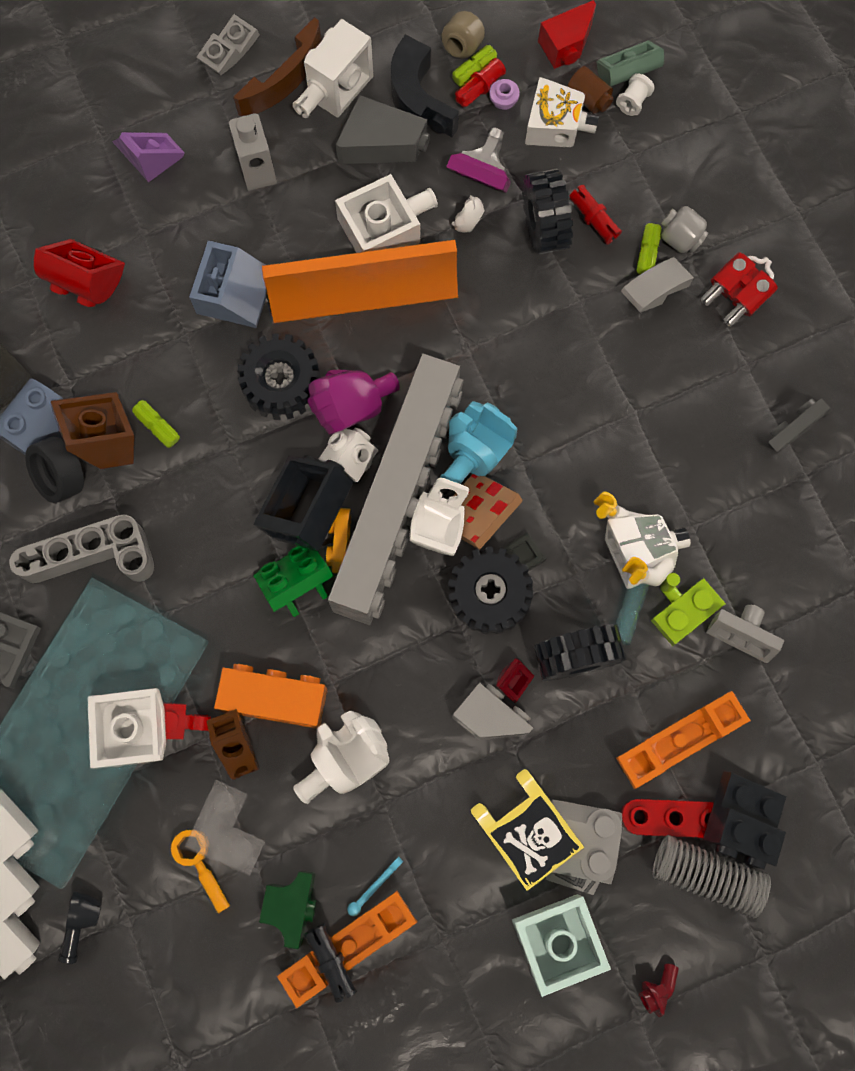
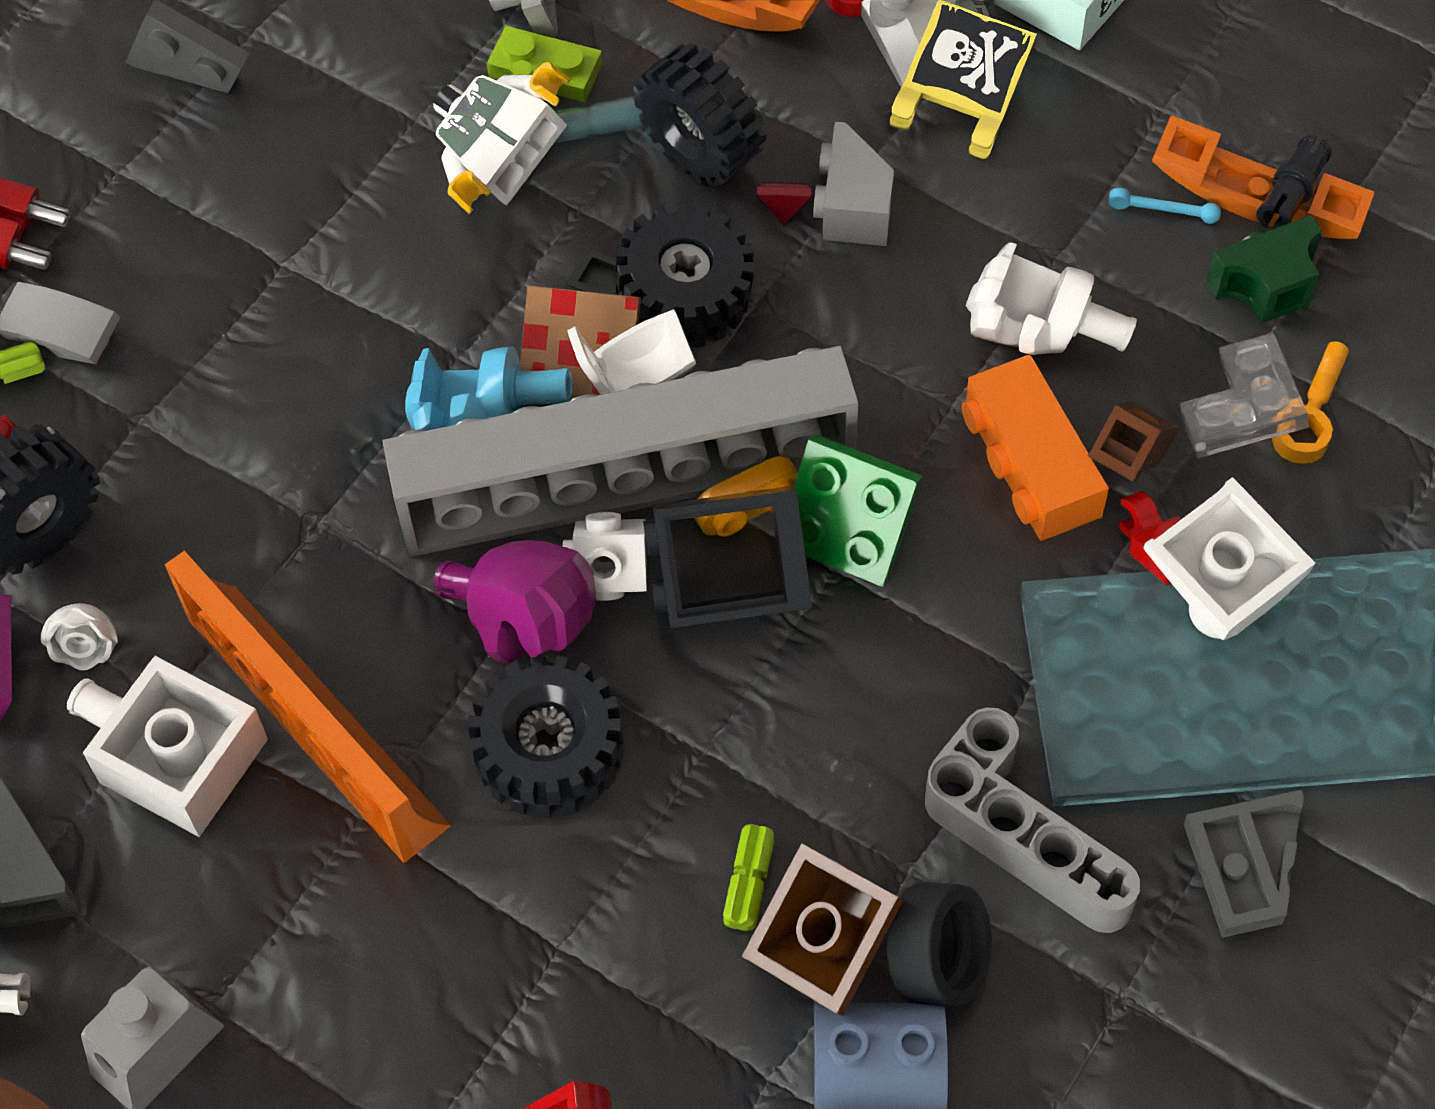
camera: 120 degrees left, 15 degrees down
(229, 285) = (436, 909): sand blue slope -> none

